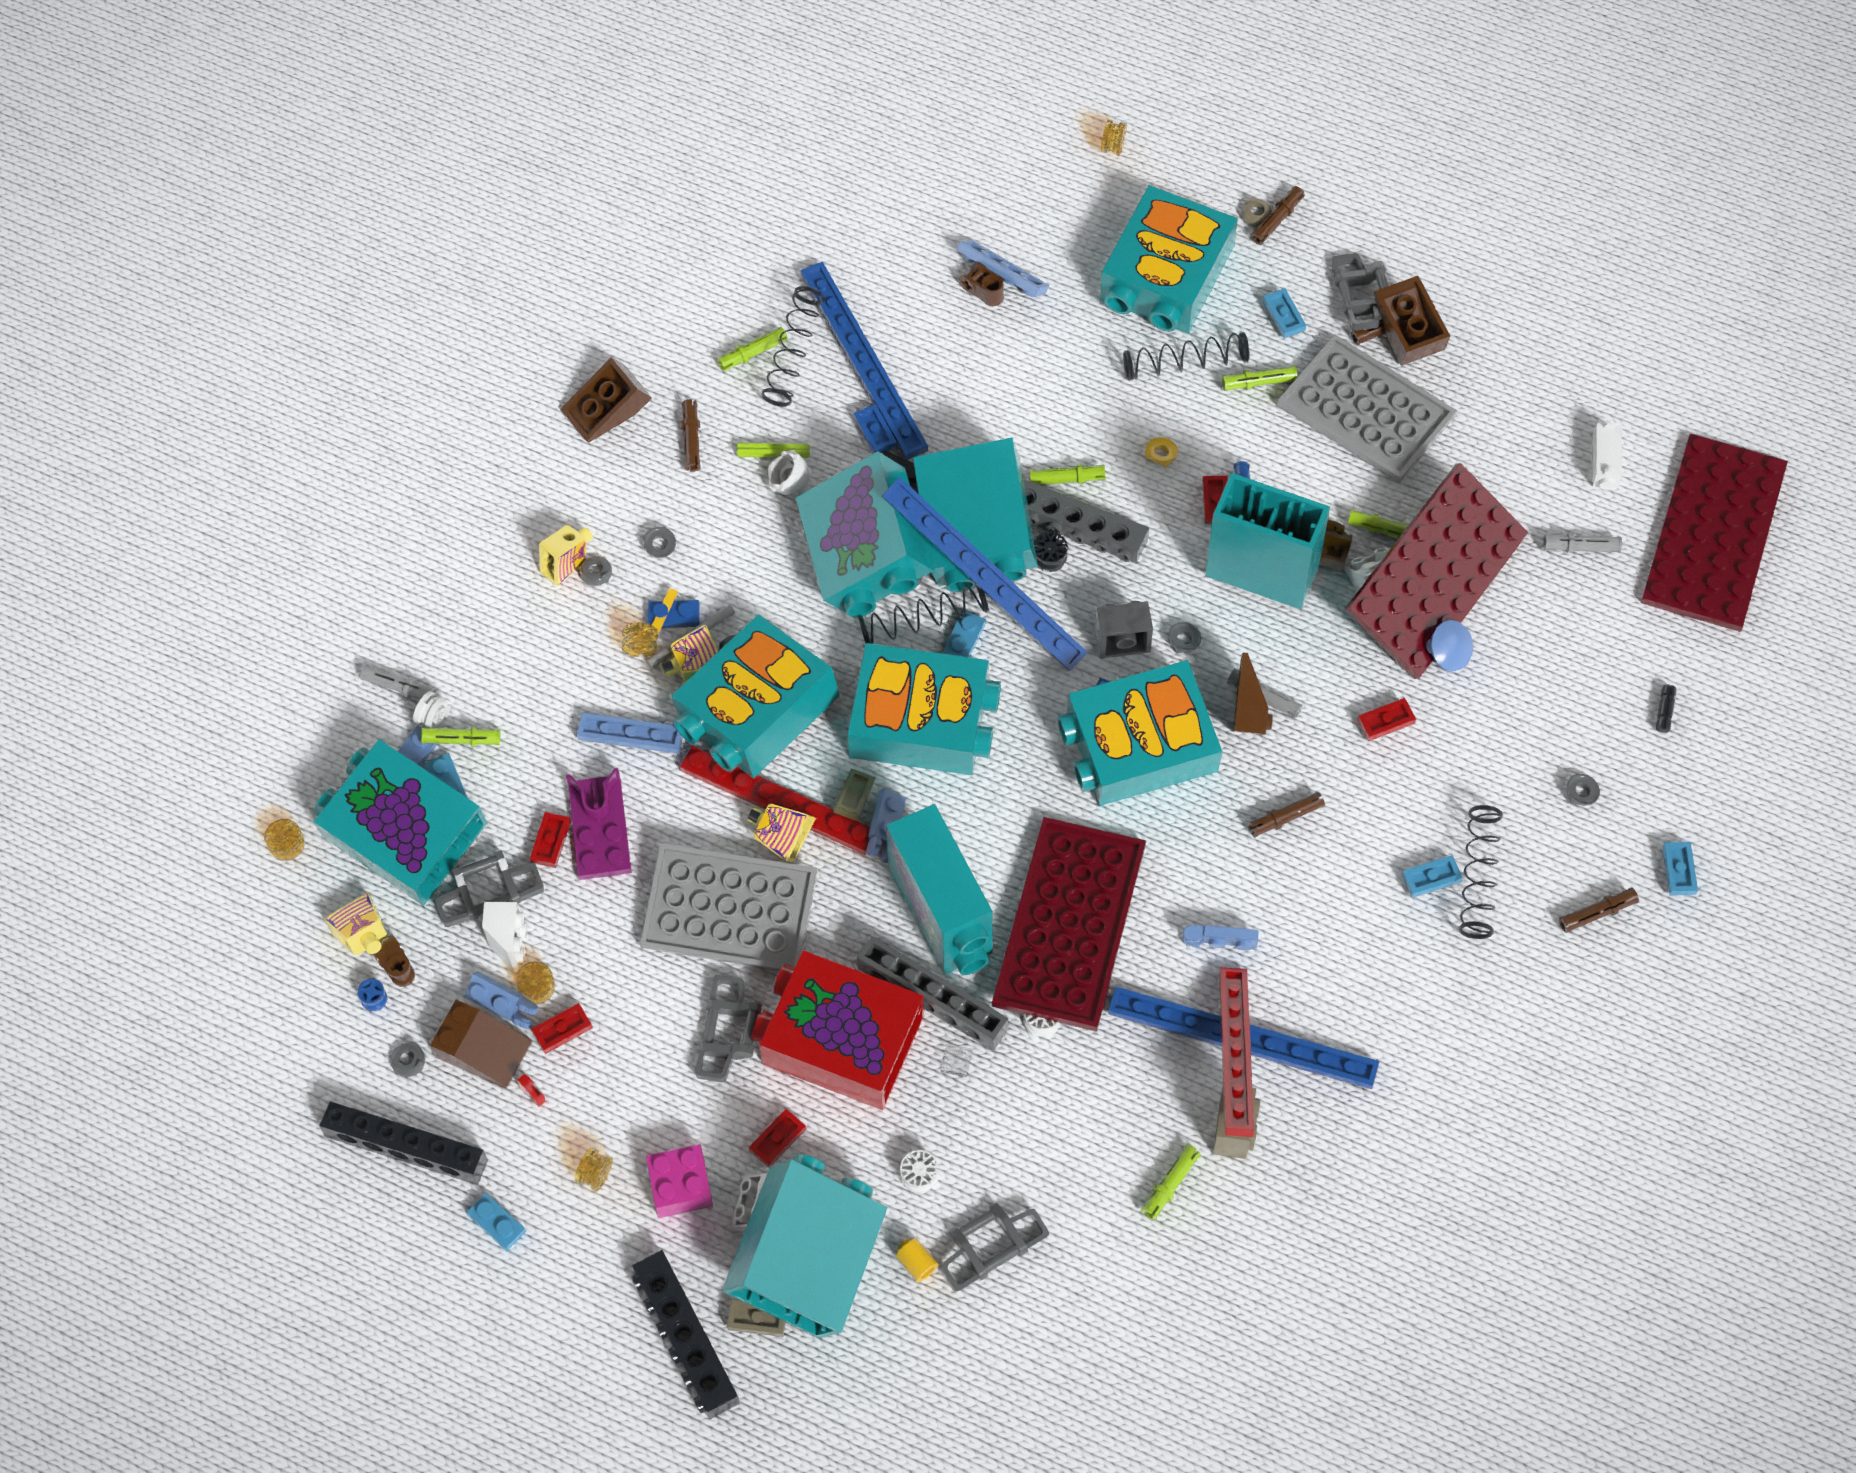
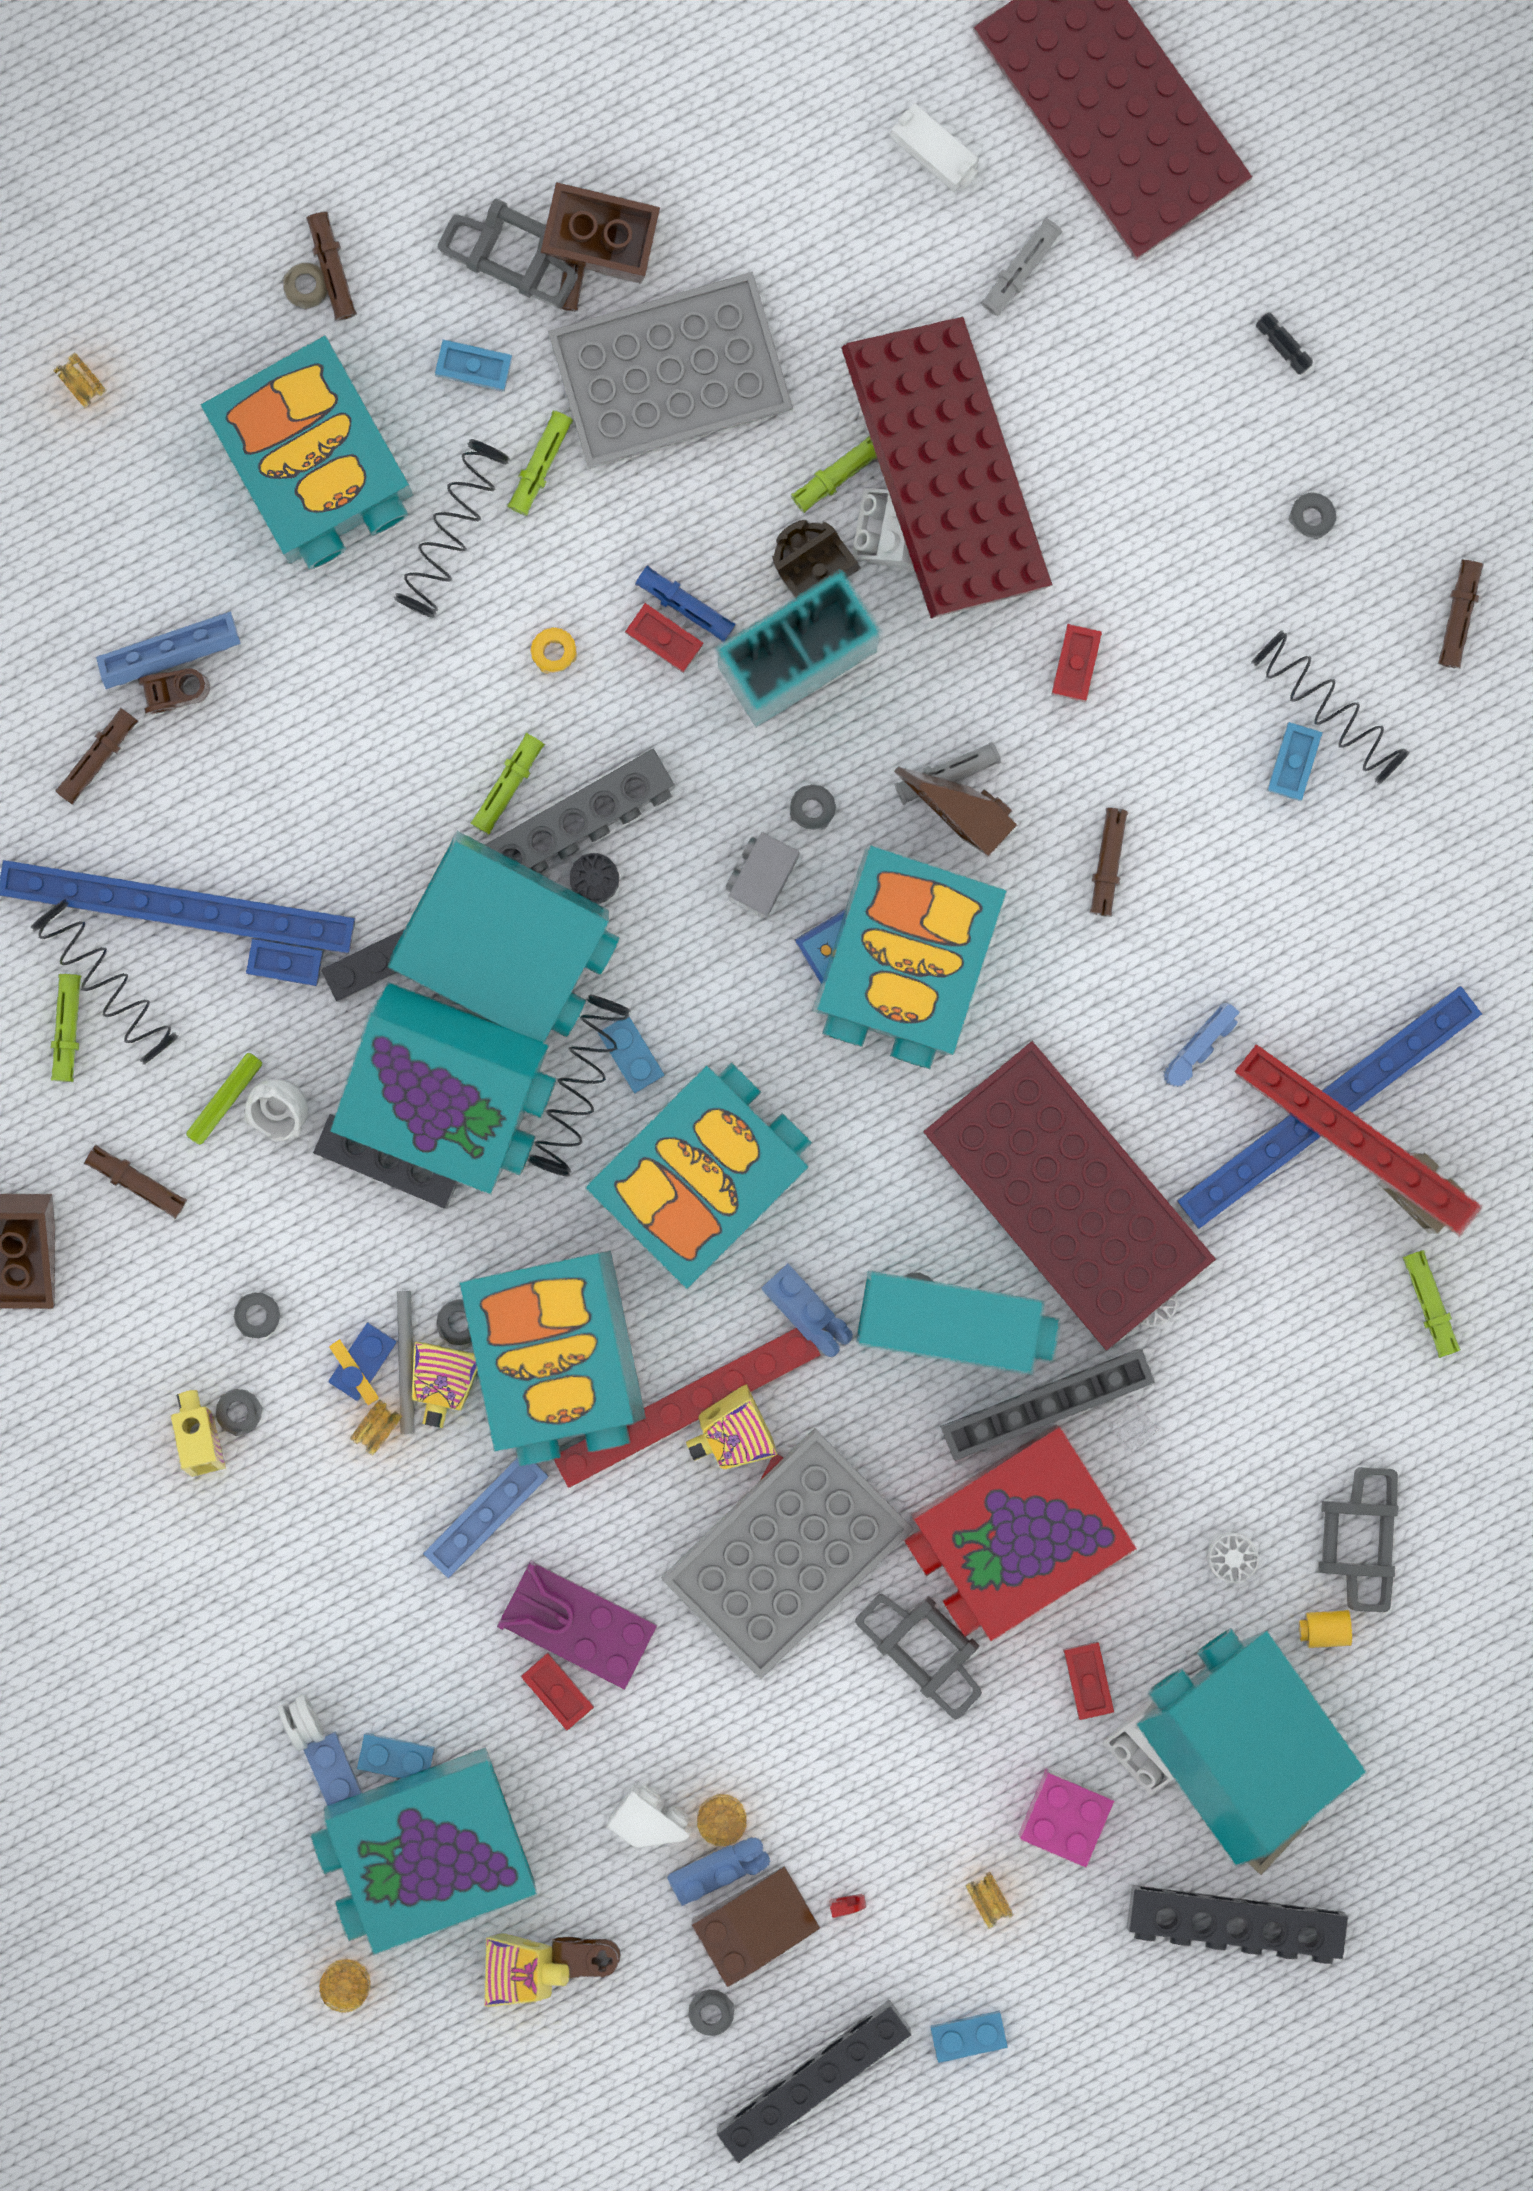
camera: 60 degrees left, 25 degrees up
(369, 989) = (605, 2010): blue wheel -> none
(408, 687) = (228, 1737): light grey pin -> none
(456, 736) = (359, 1703): lime pin -> none
(474, 911) = (585, 1830): dark grey bar -> none
(562, 1028) = (797, 1826): red plate -> none
(805, 584) = (335, 1148): none -> black brick
(854, 794) = (744, 1319): olive tile -> none
(911, 271) = (93, 760): none -> reddish brown pin
(984, 574) = (596, 995): blue plate -> none
(1451, 645) = (1043, 522): medium blue dish -> none
(1680, 868) = (1477, 487): dark azure plate -> none

